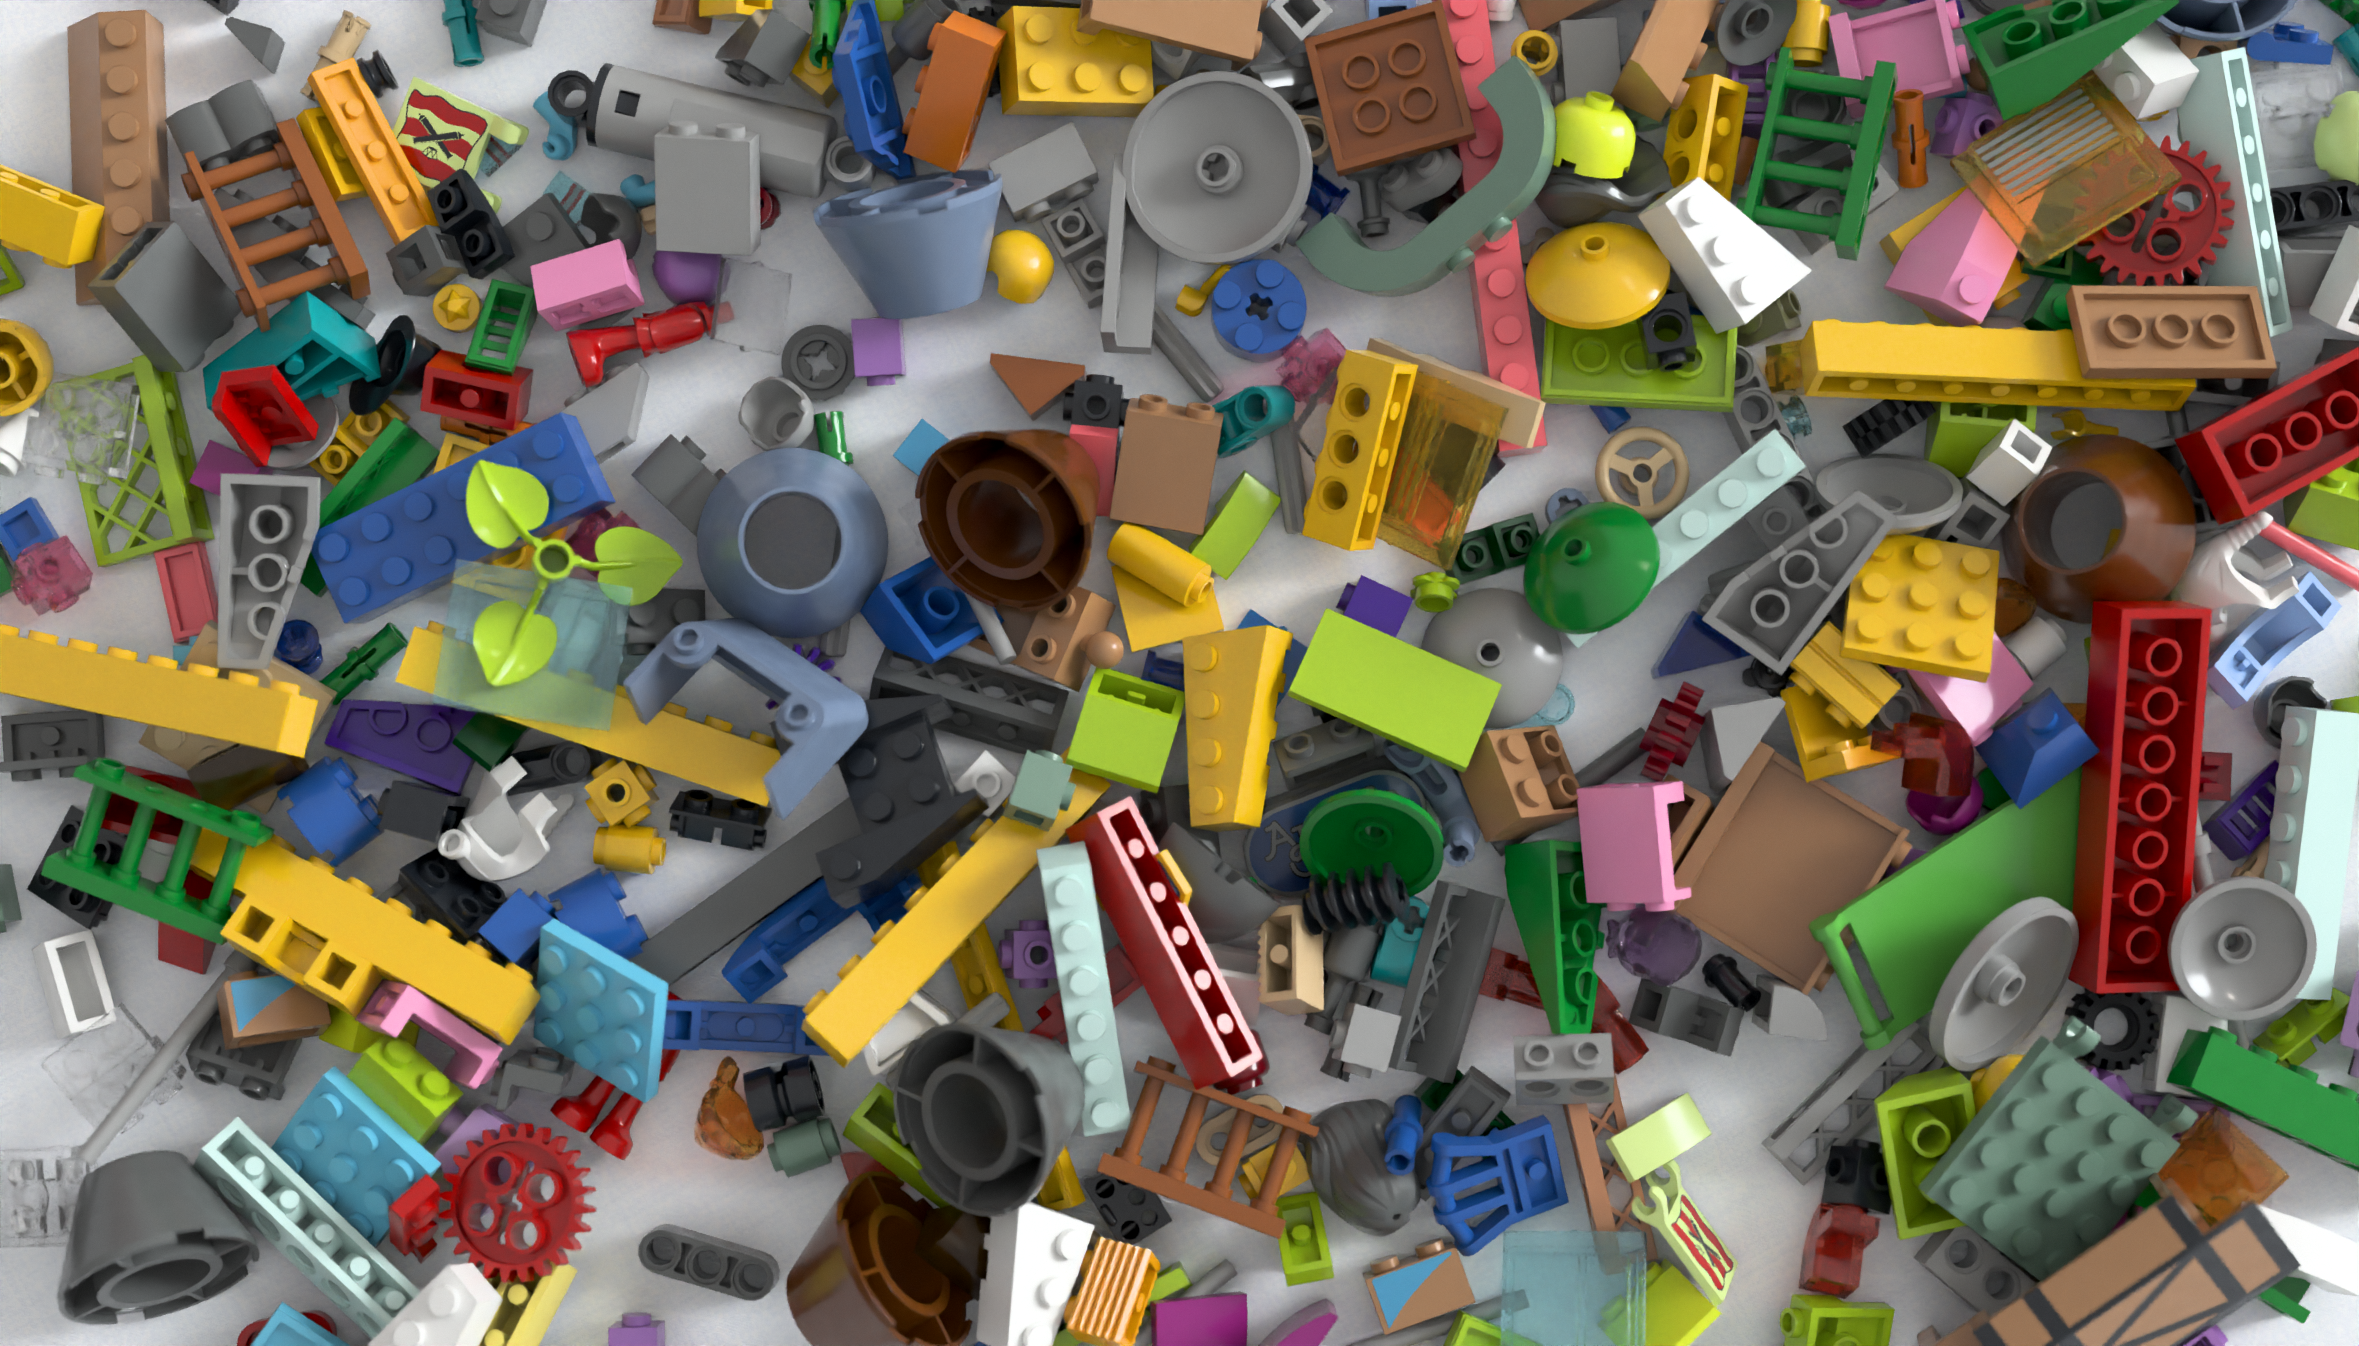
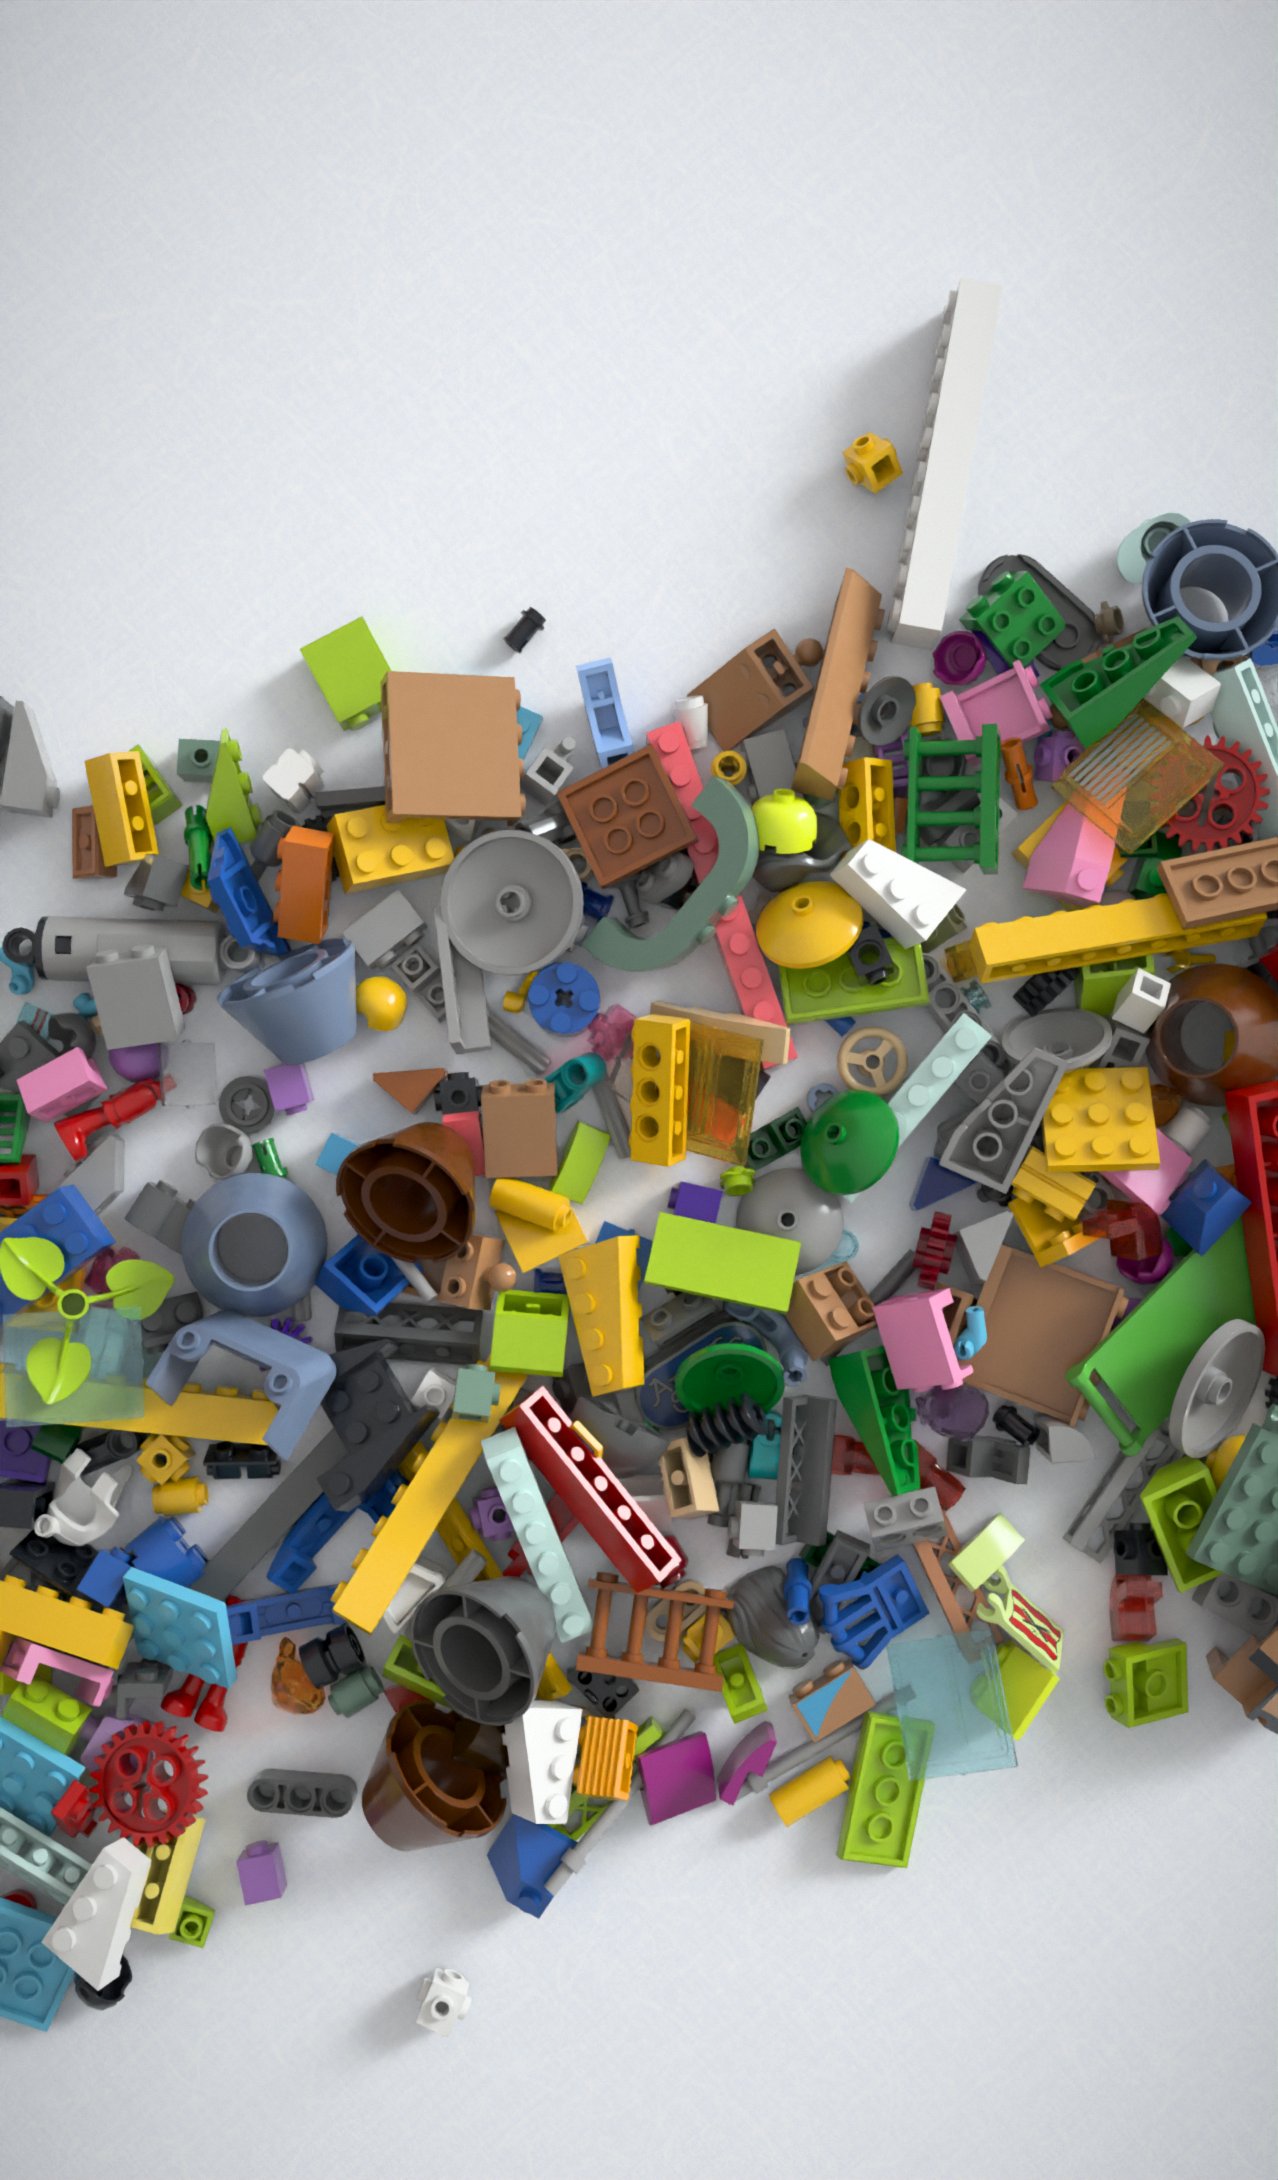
camera: 15 degrees left, 0 degrees up
(1701, 851) = (973, 1336): none -> medium azure arm

